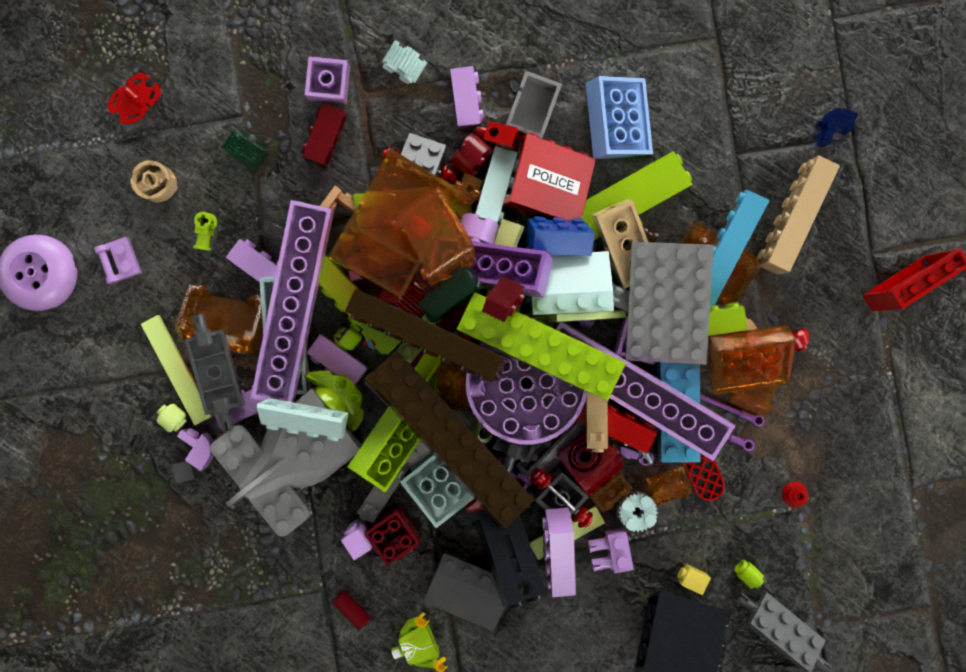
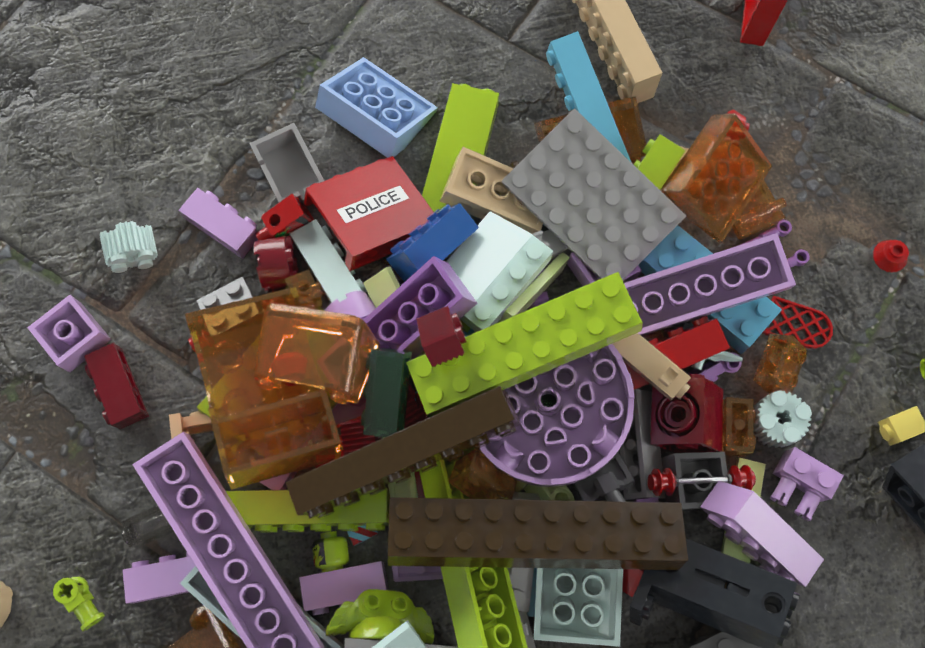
camera: 45 degrees left, 15 degrees down
(245, 150) = (47, 479): clear green brick -> none

